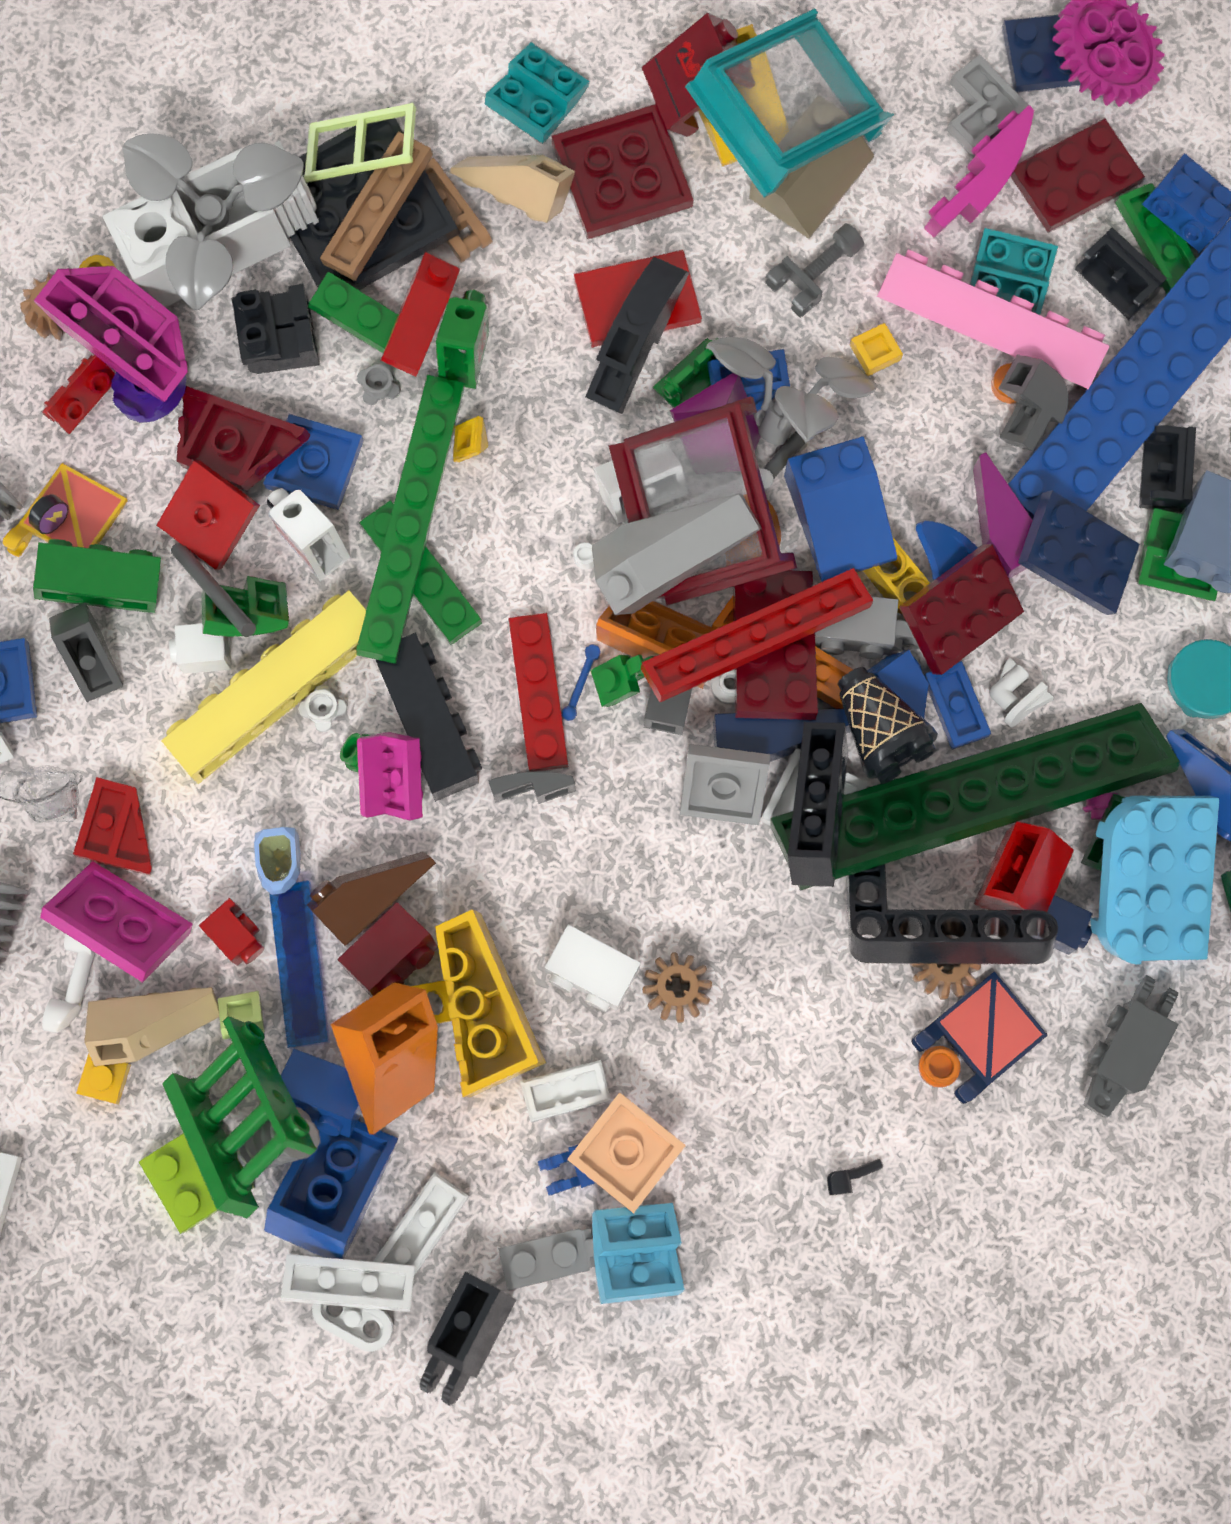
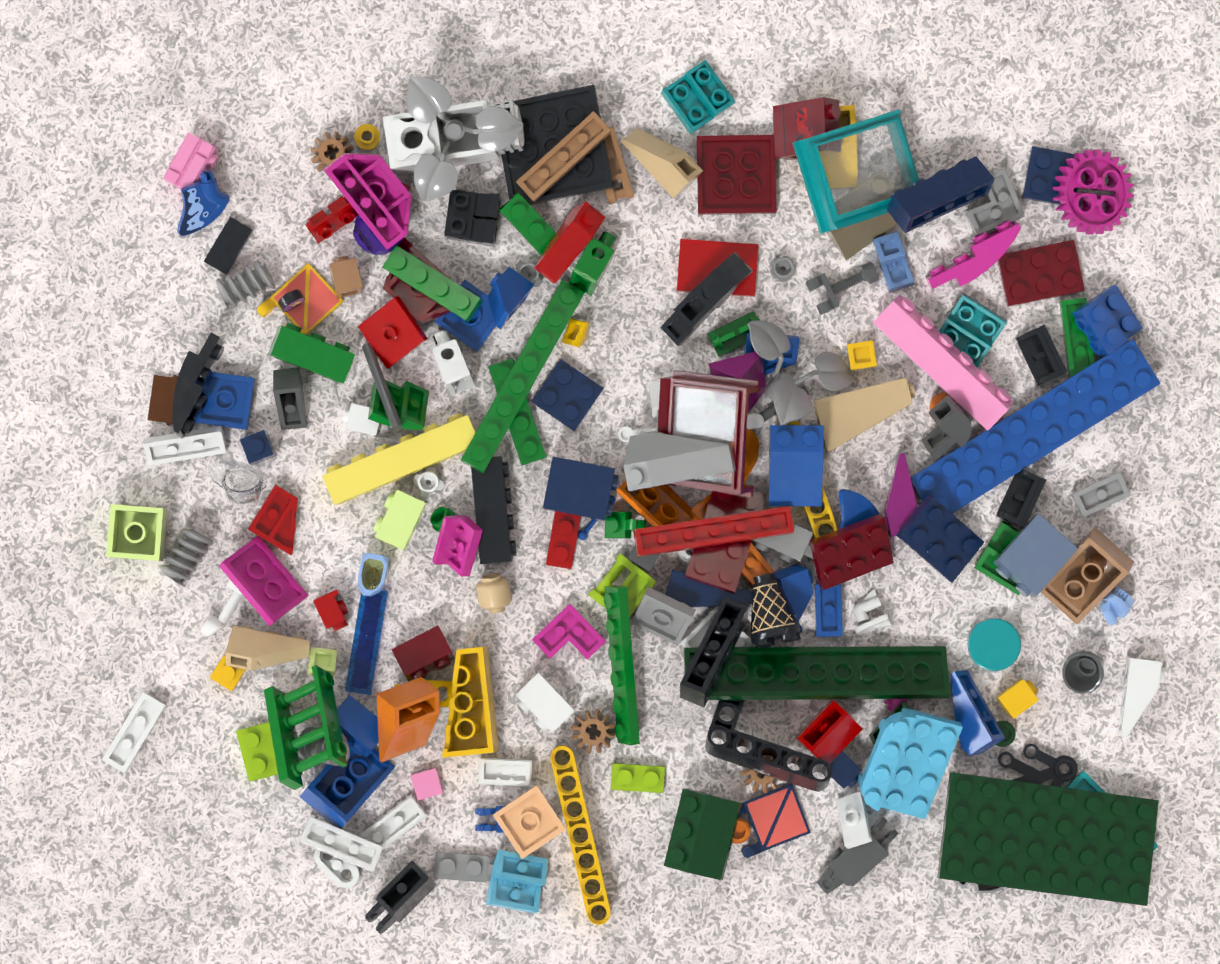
camera: 20 degrees right, 10 degrees up
(56, 733) = (258, 447): none -> dark blue brick
(119, 462) = (345, 277): none -> medium nougat brick
(244, 427) = (432, 284): none -> green plate
(295, 771) = (399, 520): none -> yellowish green brick
(357, 412) = (507, 295): none -> blue slope
(360, 121) = (572, 91): yellowish green window -> none
(361, 896) = (418, 612): reddish brown slope -> none
(453, 1148) = (426, 784): none -> bright pink tile
(465, 832) = (493, 592): none -> tan head
(484, 528) = (567, 395): none -> dark blue plate
(544, 641) = (580, 489): none -> dark blue brick
(544, 784) = (551, 579): dark grey slope -> none
(591, 848) = (571, 627): none -> dark pink plate
(663, 773) = (636, 583): none -> lime plate
(688, 874) = (622, 665): none -> green plate
(727, 1162) = (587, 846): none -> yellow beam
(729, 262) = (790, 268): none -> light grey plate
(765, 1036) = (637, 778): none -> lime plate
(840, 1181) = (653, 878): black hand -> none
(870, 215) = (893, 262): none -> medium blue slope
(892, 1086) = (702, 834): none -> dark green slope
(905, 414) = (859, 410): none -> tan slope
(909, 97) = (940, 194): none -> dark blue brick
(1107, 992) = (854, 820): none -> white plate

